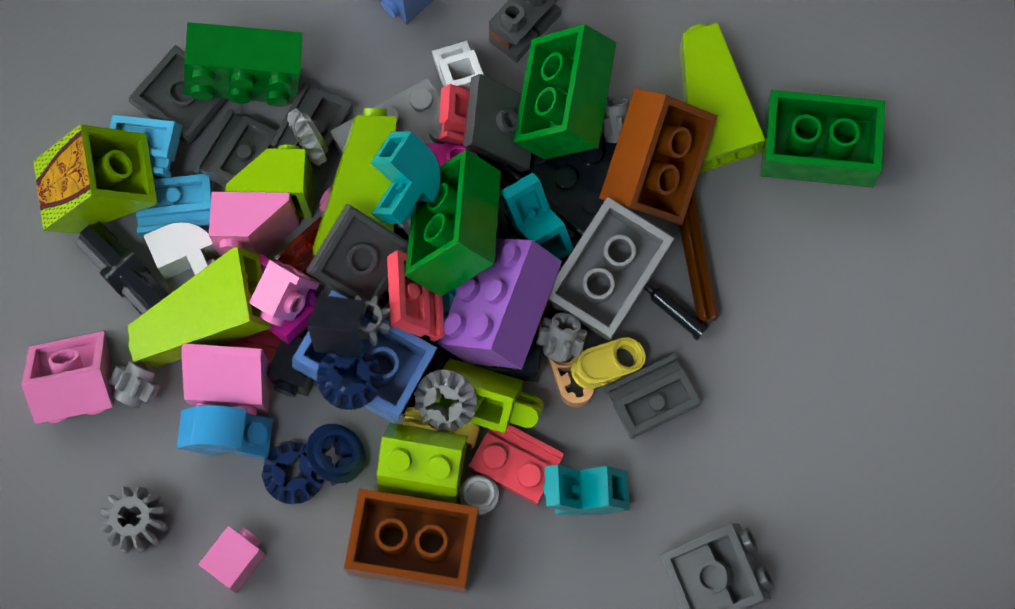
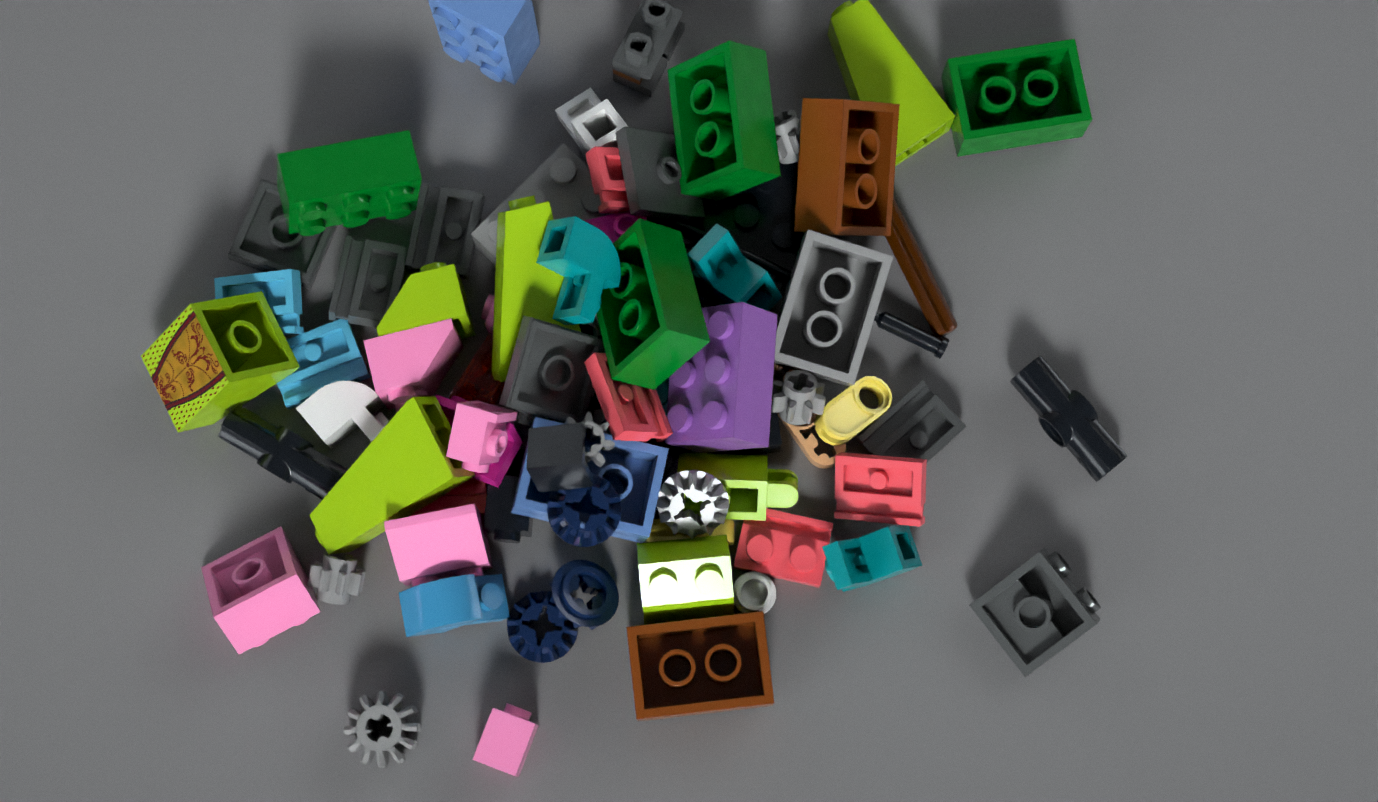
camera: 20 degrees left, 5 degrees up
(308, 136) = (449, 246): light grey gear -> none
(611, 434) = (880, 488): none -> coral plate
(792, 420) = (1068, 418): none -> black piece

